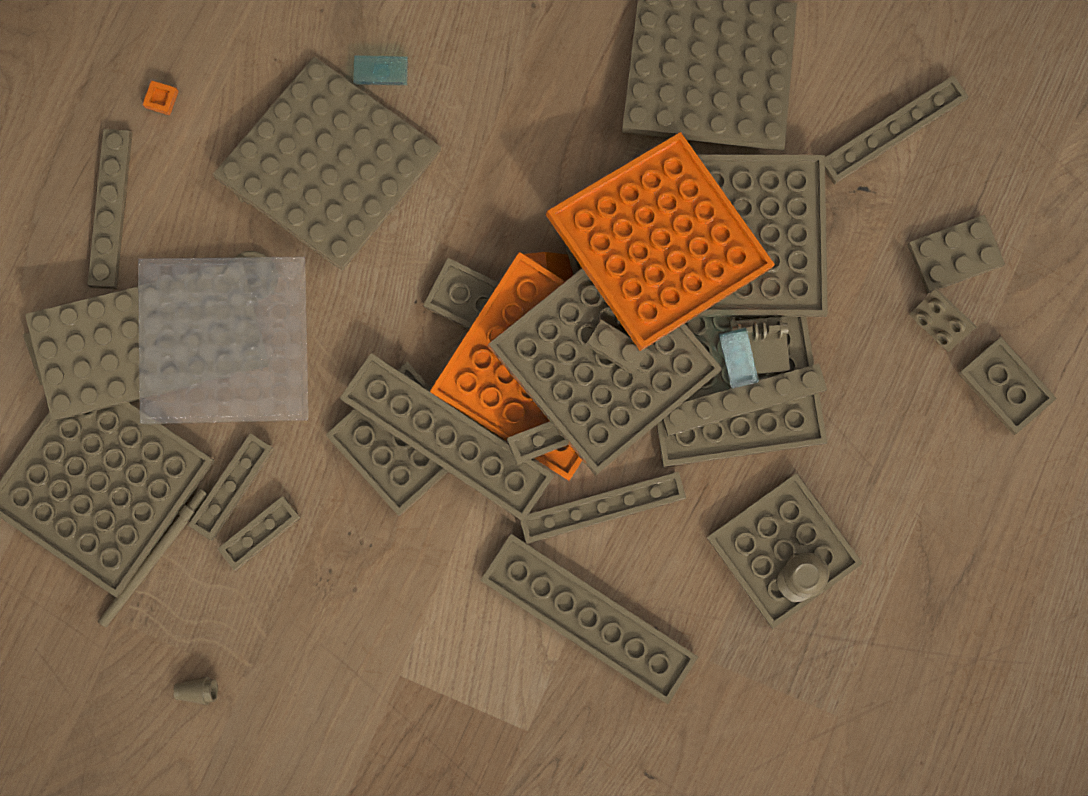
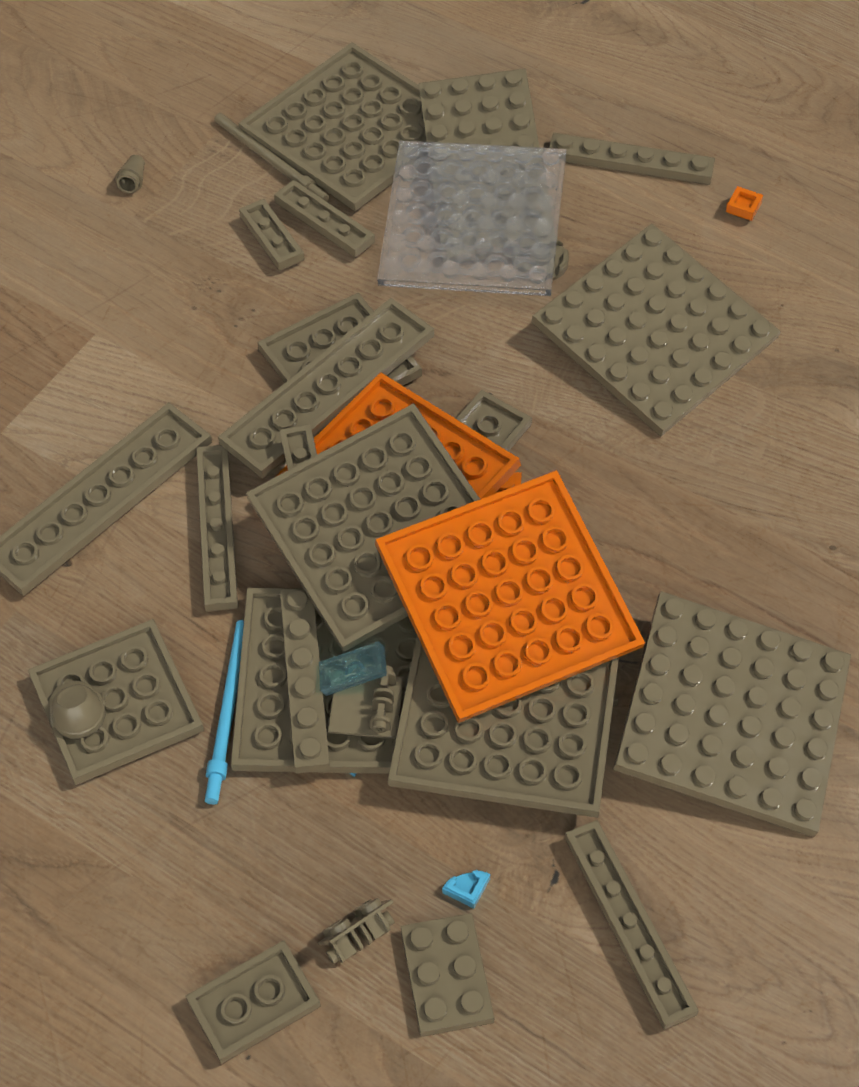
camera: 95 degrees right, 25 degrees down
(380, 70) = (759, 388): clear light blue plate -> none
(616, 347) = (391, 518): dark tan plate -> none
(827, 456) = (217, 767): none -> medium azure bar
(886, 249) = (467, 887): none -> medium azure tile

